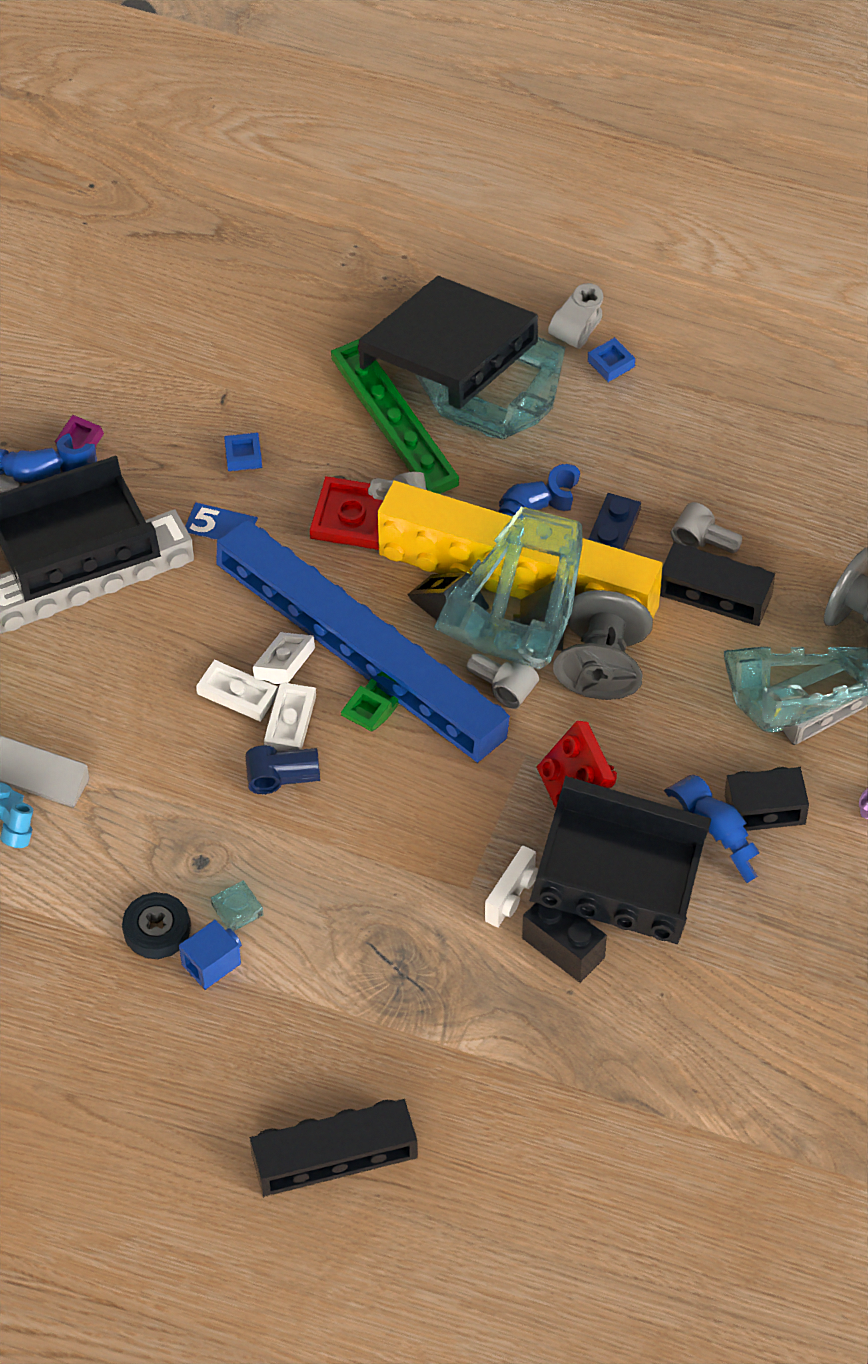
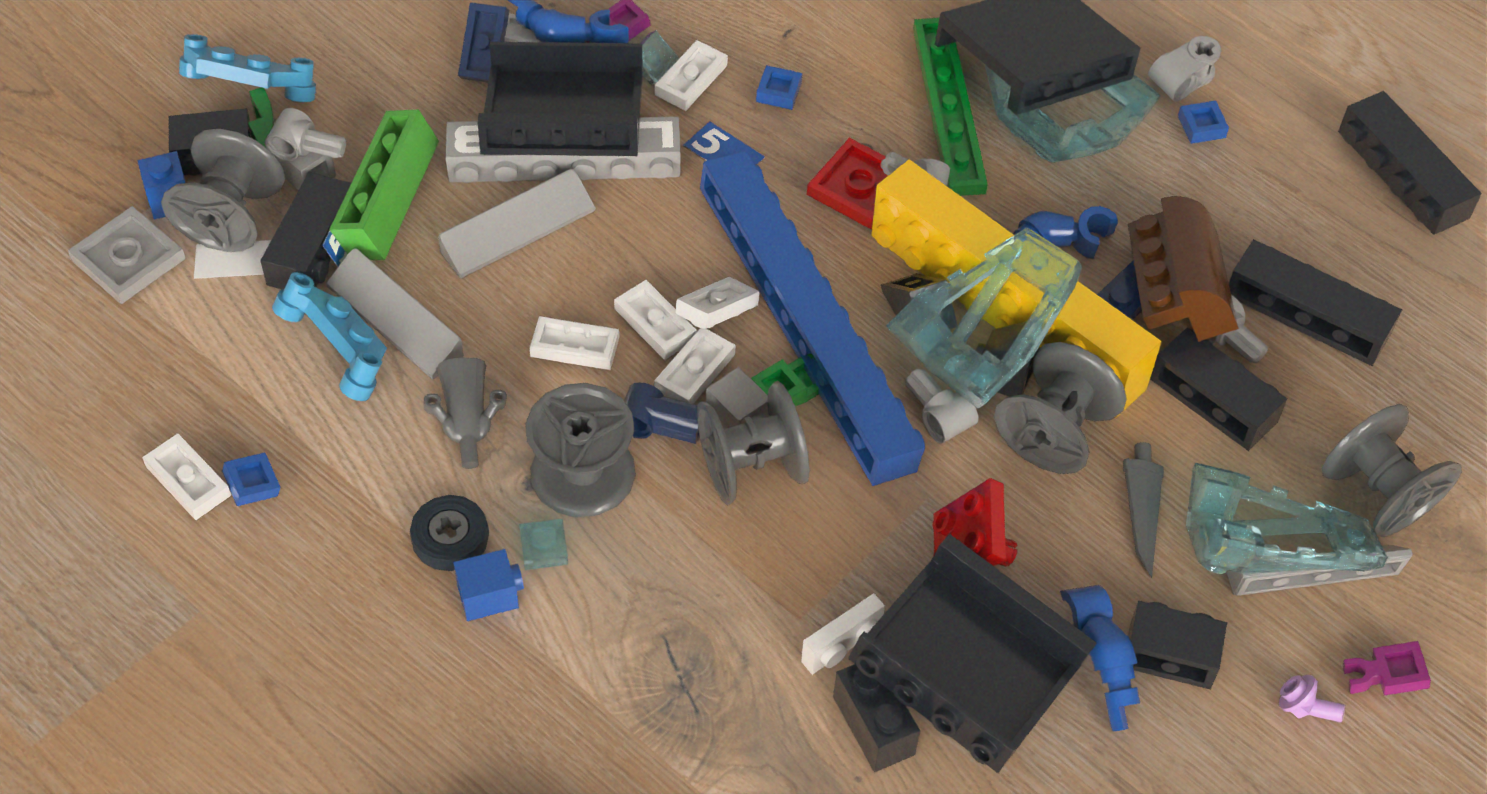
camera: 20 degrees right, 0 degrees up
(77, 651) = (515, 223): none -> light grey slope
(114, 819) = (464, 398): none -> dark grey piece
(129, 460) = (657, 57): none -> clear light blue plate
(162, 467) = (691, 75): none -> white plate
(179, 734) = (574, 343): none -> white plate
(236, 818) = (581, 449): none -> dark grey piece
(342, 737) = (736, 398): none -> light grey brick
(391, 748) = (753, 442): none -> dark grey piece
(649, 495) = (1182, 269): none -> reddish brown brick
(693, 690) = (1144, 493): none -> dark grey bar
(762, 485) = (1313, 302): none -> black brick
(791, 338) = (1409, 162): none -> black brick

